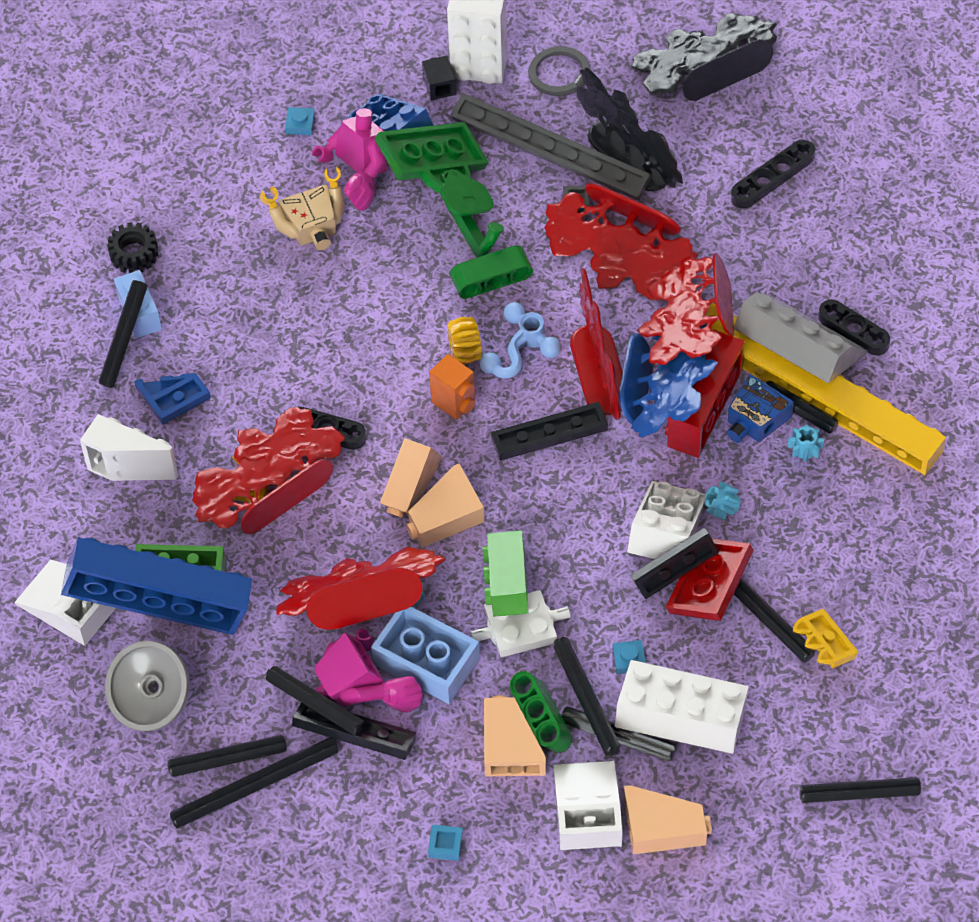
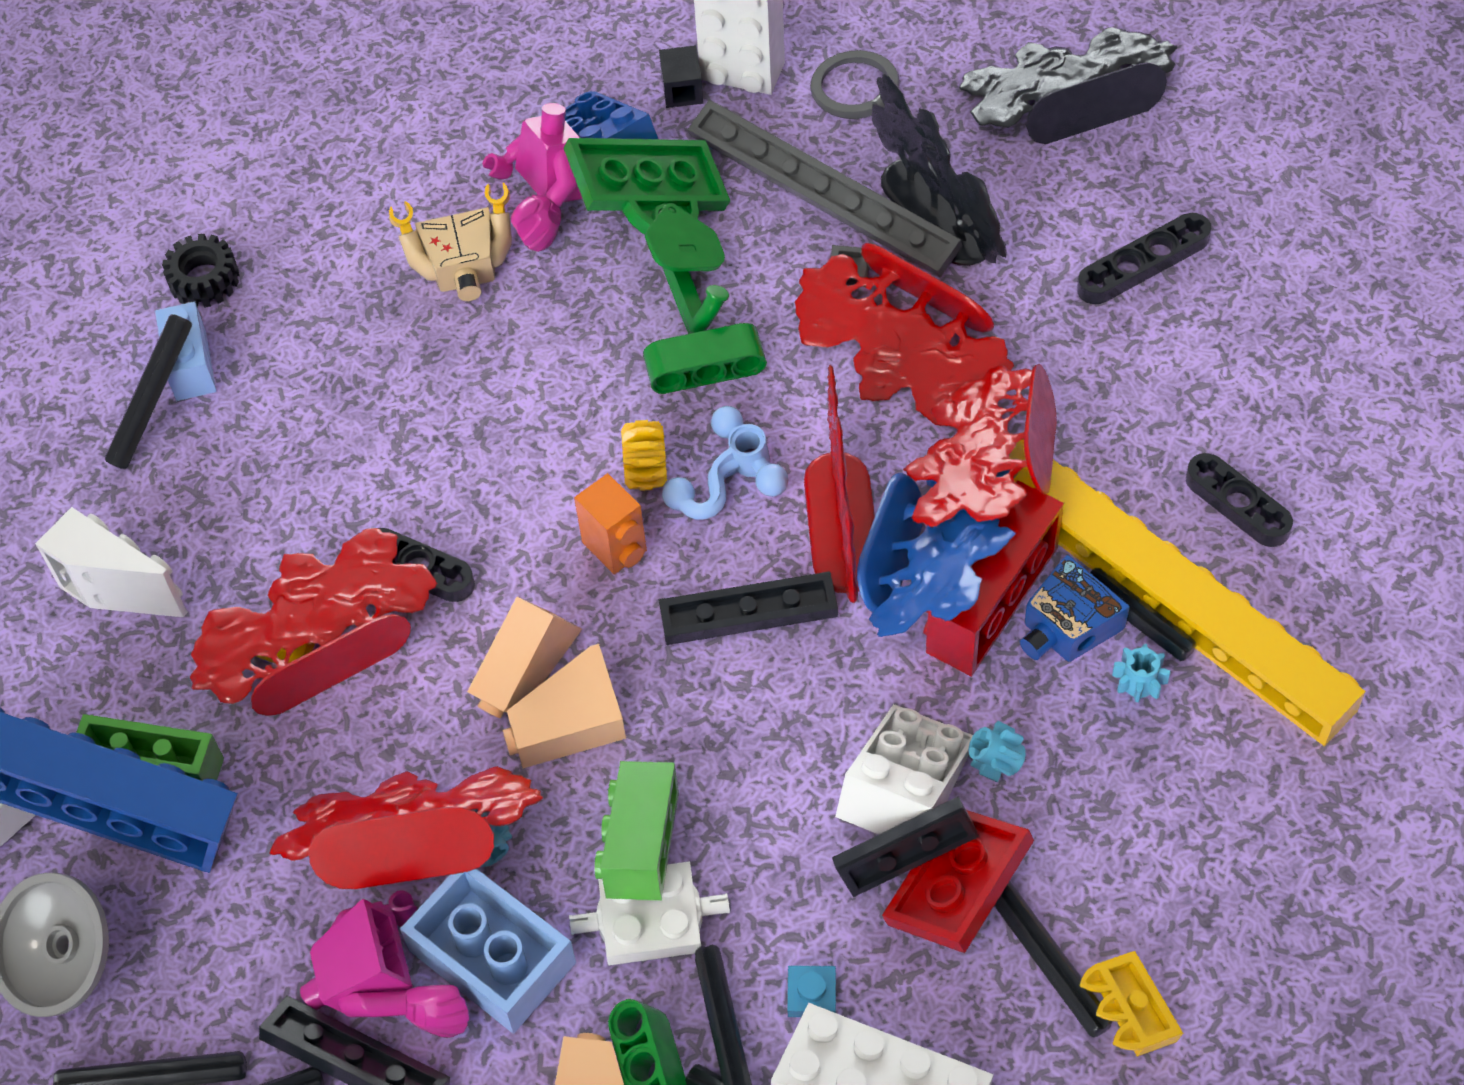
camera: 10 degrees right, 0 degrees up
(173, 395) = (206, 490): blue wing -> none
(300, 121) = (476, 118): dark azure plate -> none
(314, 700) = (300, 1003): black axle -> none
(797, 337) = (1148, 505): light grey slope -> none

